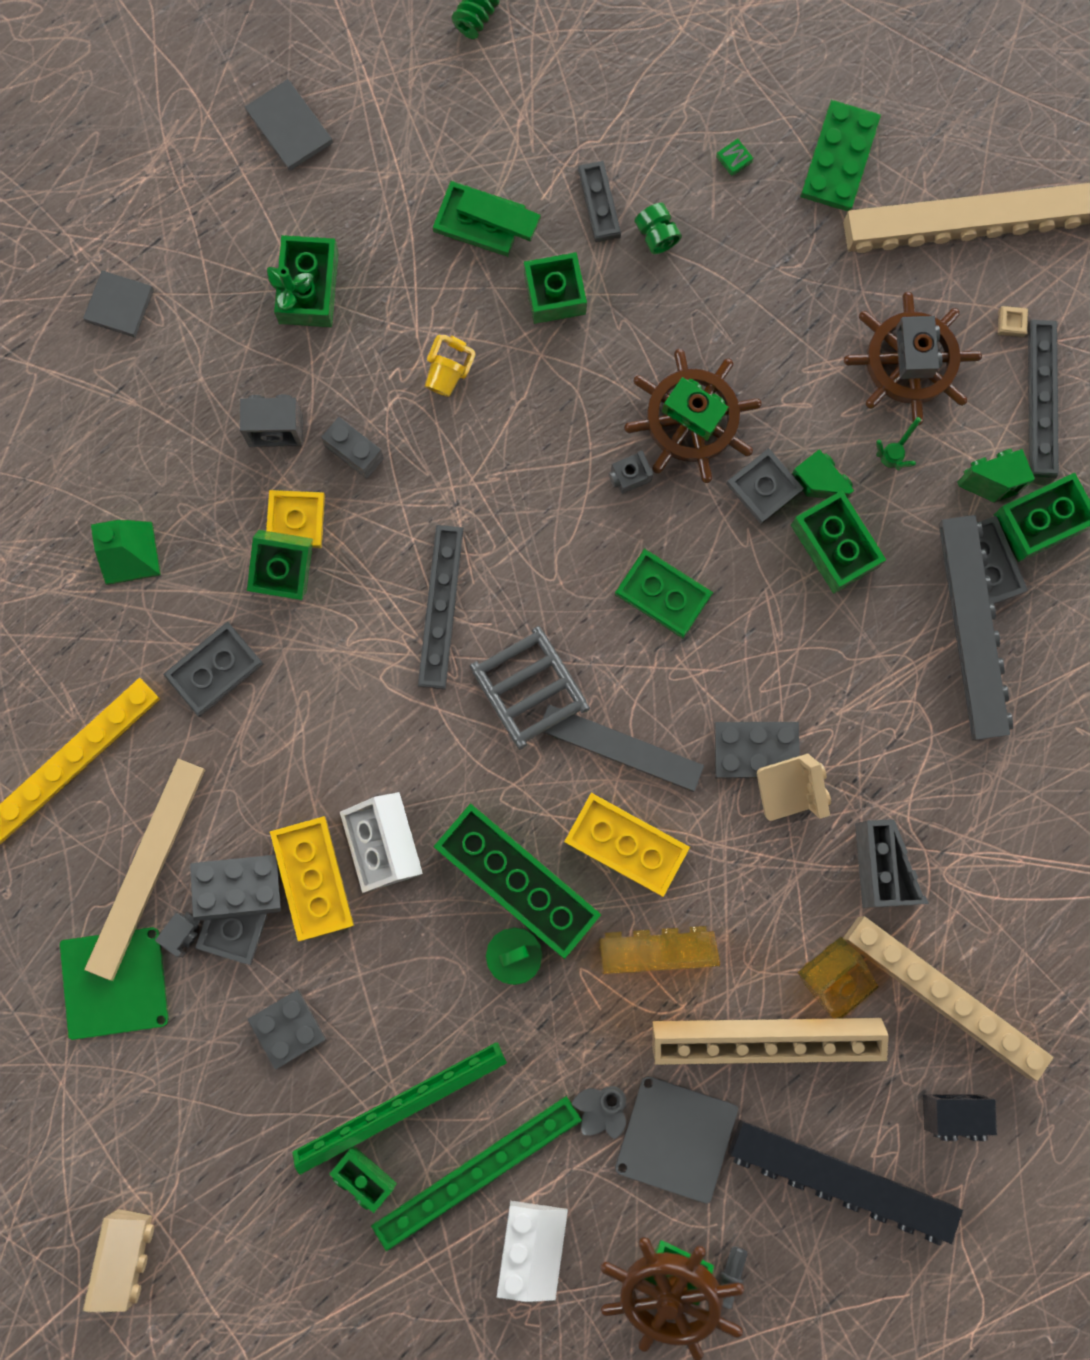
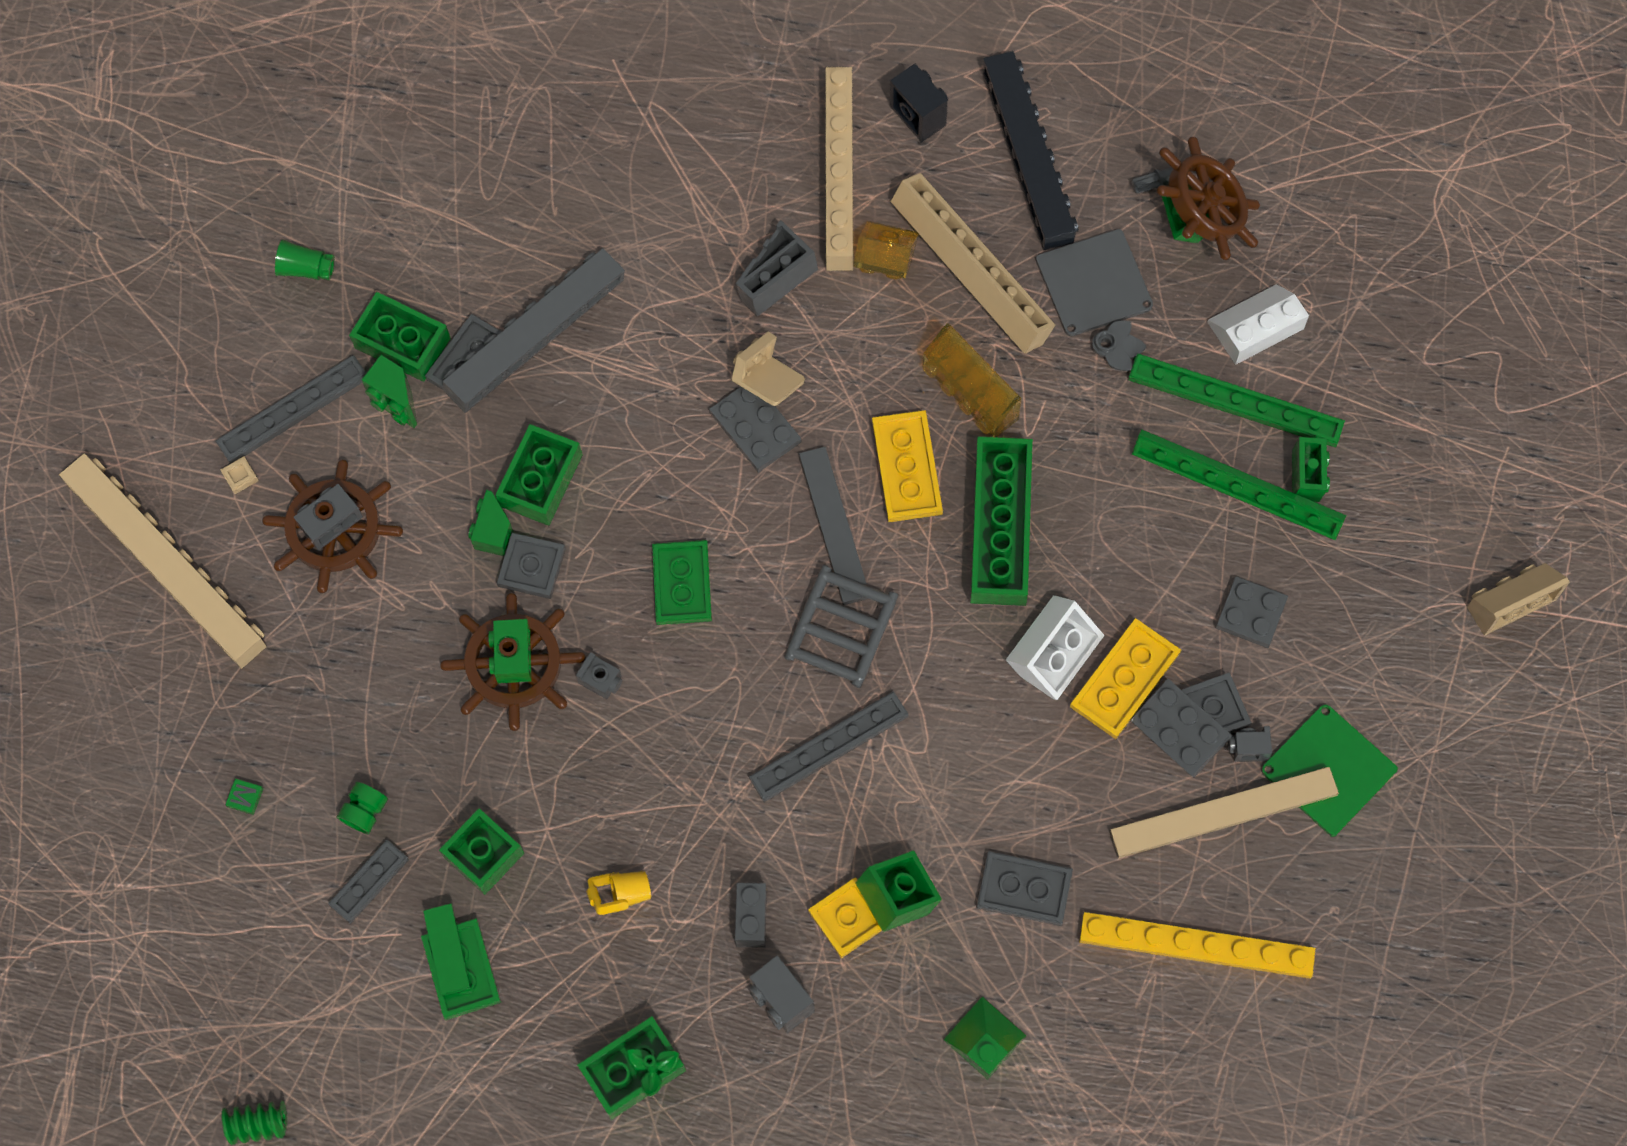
camera: 120 degrees left, 10 degrees down
(514, 956) = (1058, 488): green tile -> none
(840, 156) = (180, 711): green plate -> none
(894, 453) = (427, 485): green plant -> none

